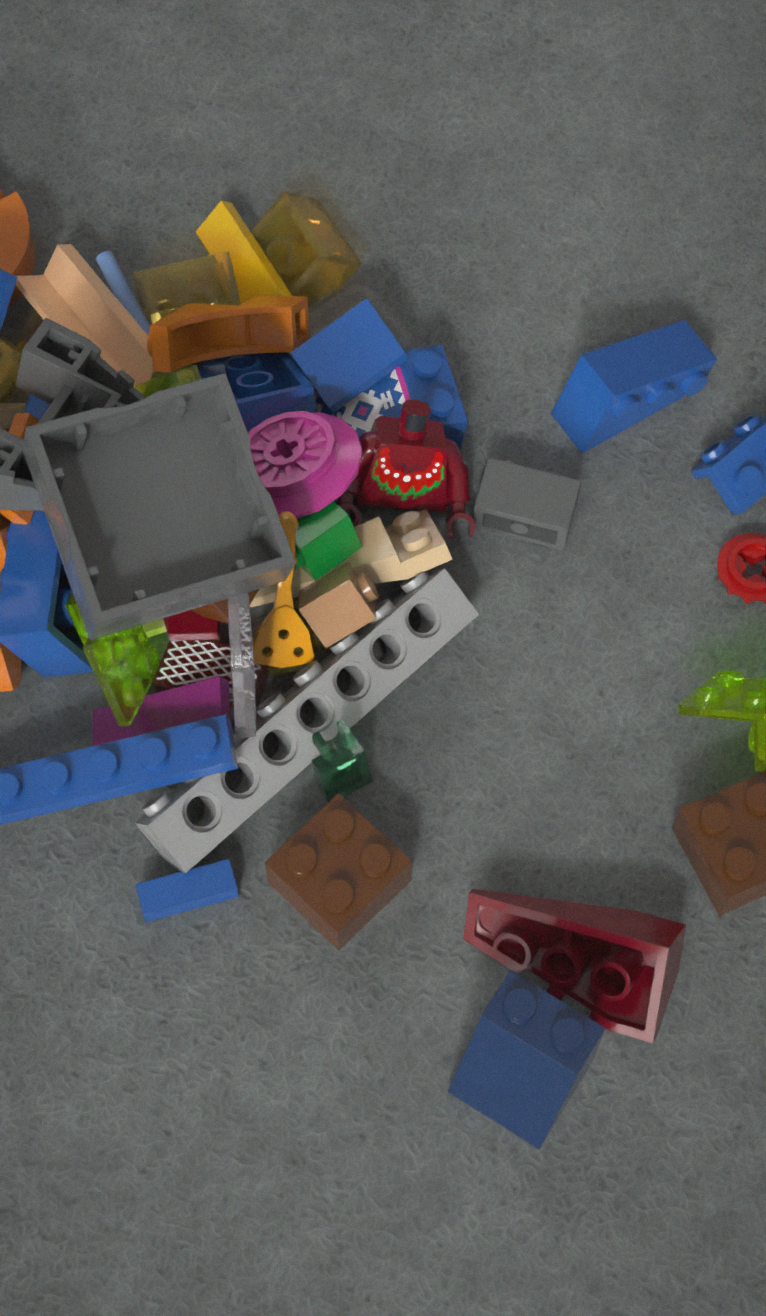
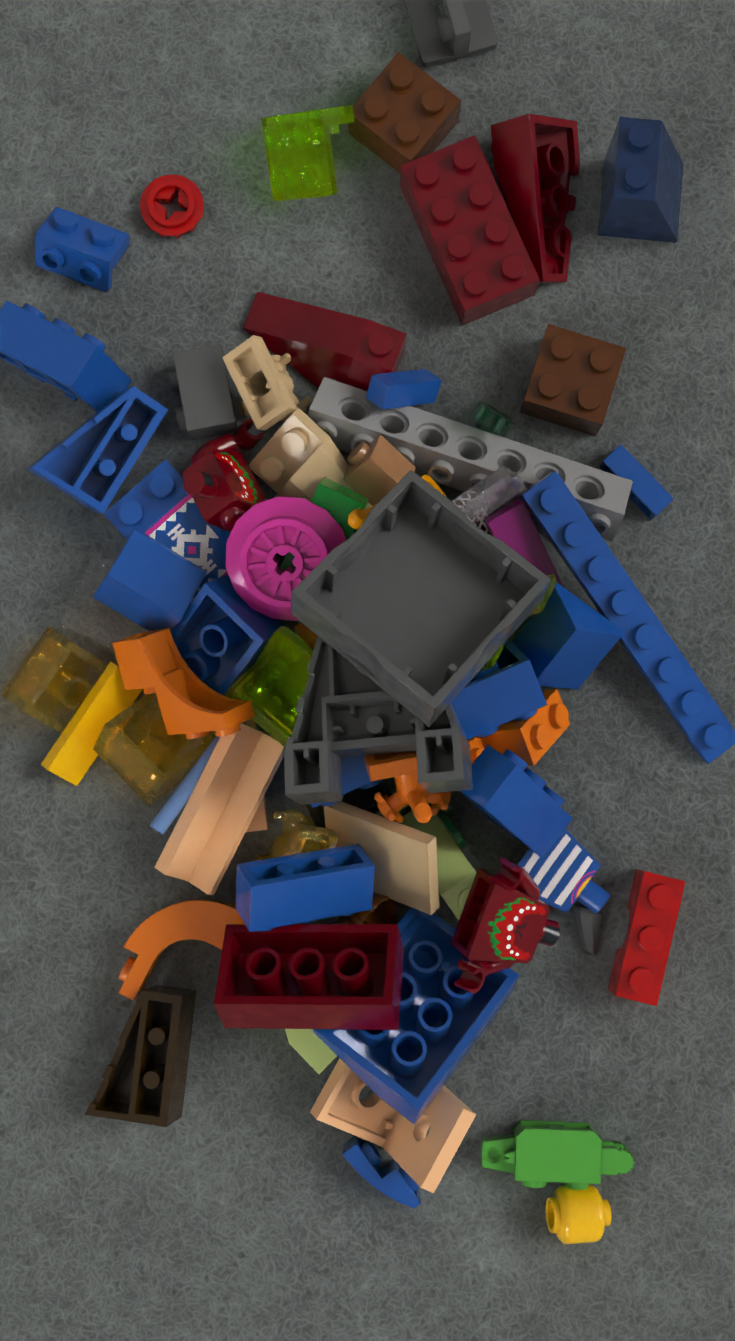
camera: 115 degrees left, 20 degrees up
(54, 712) = (566, 640): none -> blue slope
(421, 684) = (403, 388): none -> blue piece
(495, 540) = (263, 383): none -> tan piece
(511, 372) = (102, 450): none -> blue wedge
(512, 649) = (325, 340): none -> dark red wedge
(575, 844) = (468, 230): none -> dark red brick

